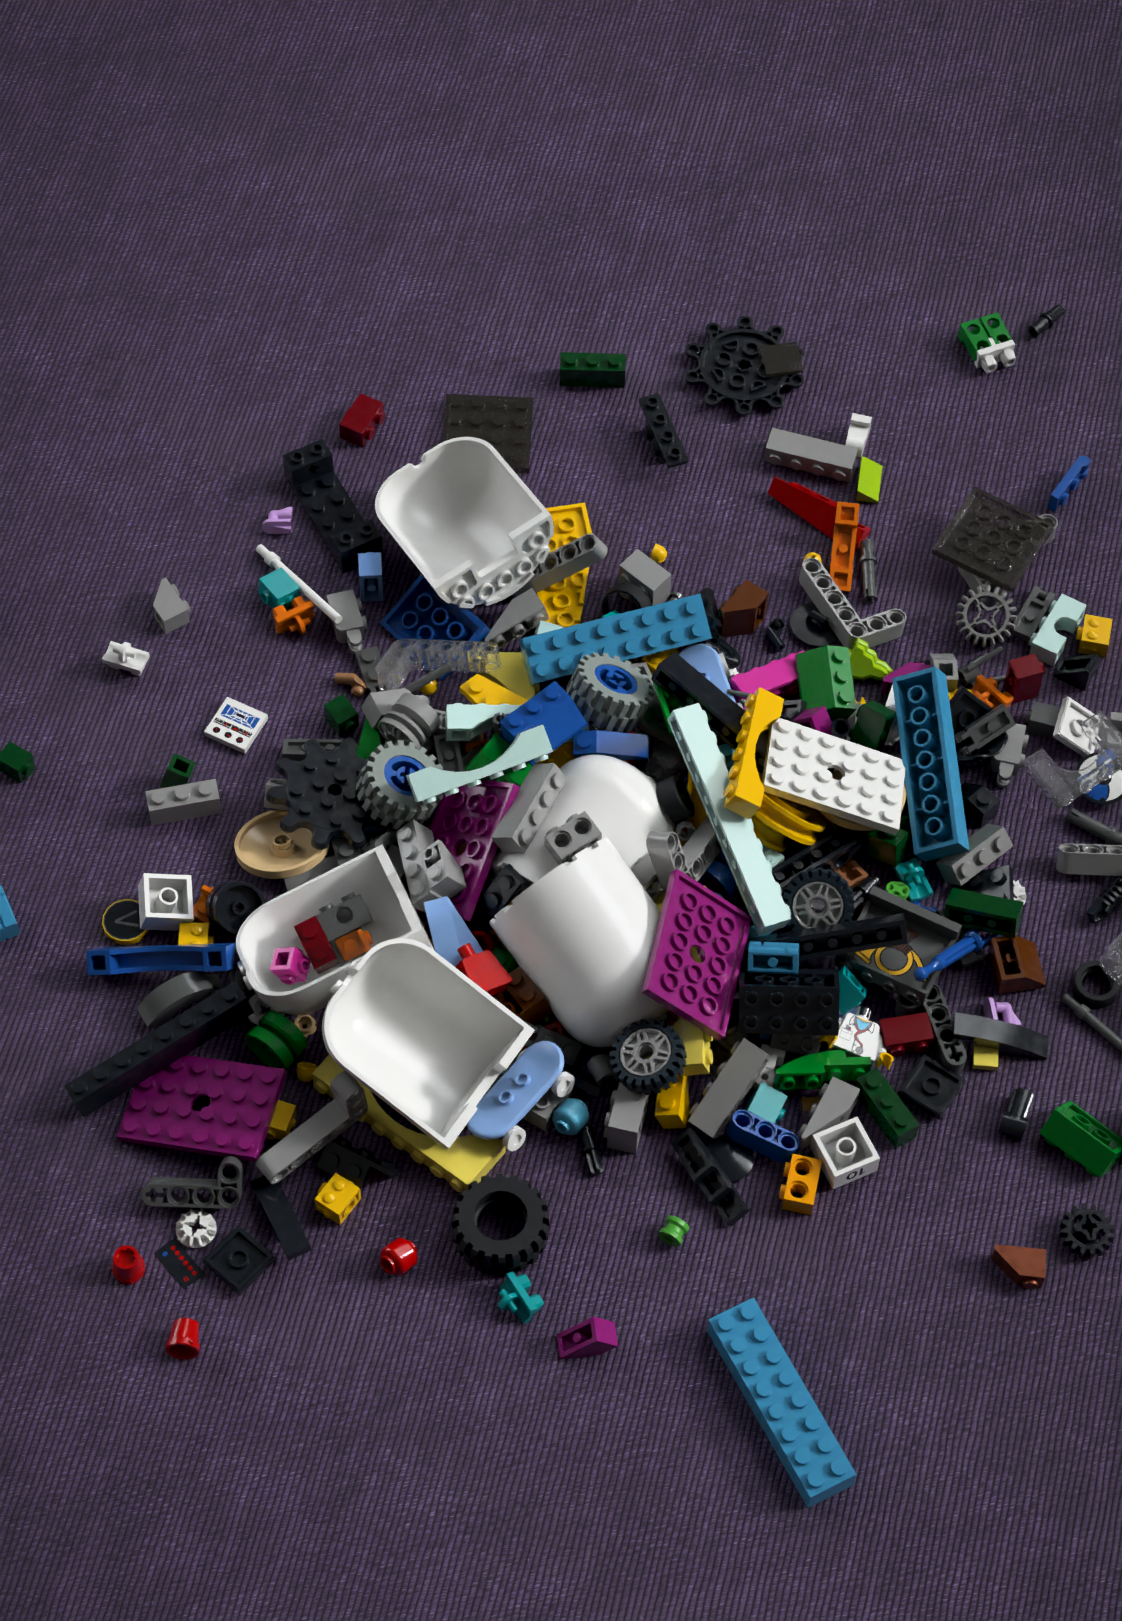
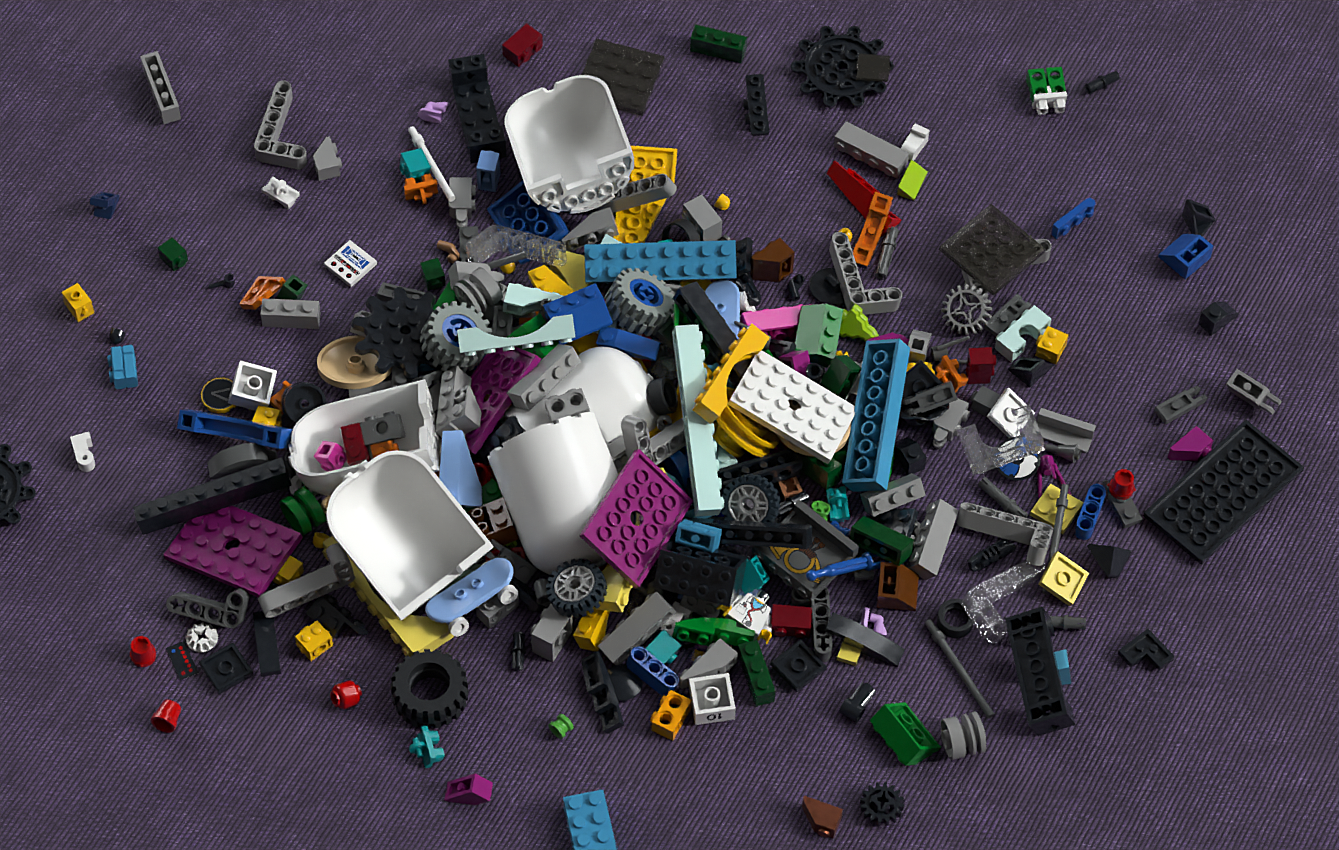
camera: 15 degrees right, 0 degrees up
(91, 563) = (274, 151): none -> light grey beam
(92, 782) = (226, 282): none -> black hand
(137, 780) = (261, 289): none -> orange wing
(483, 969) = (469, 493): red torso -> none
(570, 1116) = (509, 621): medium azure head -> none
(1039, 896) = (932, 539): none -> light grey brick

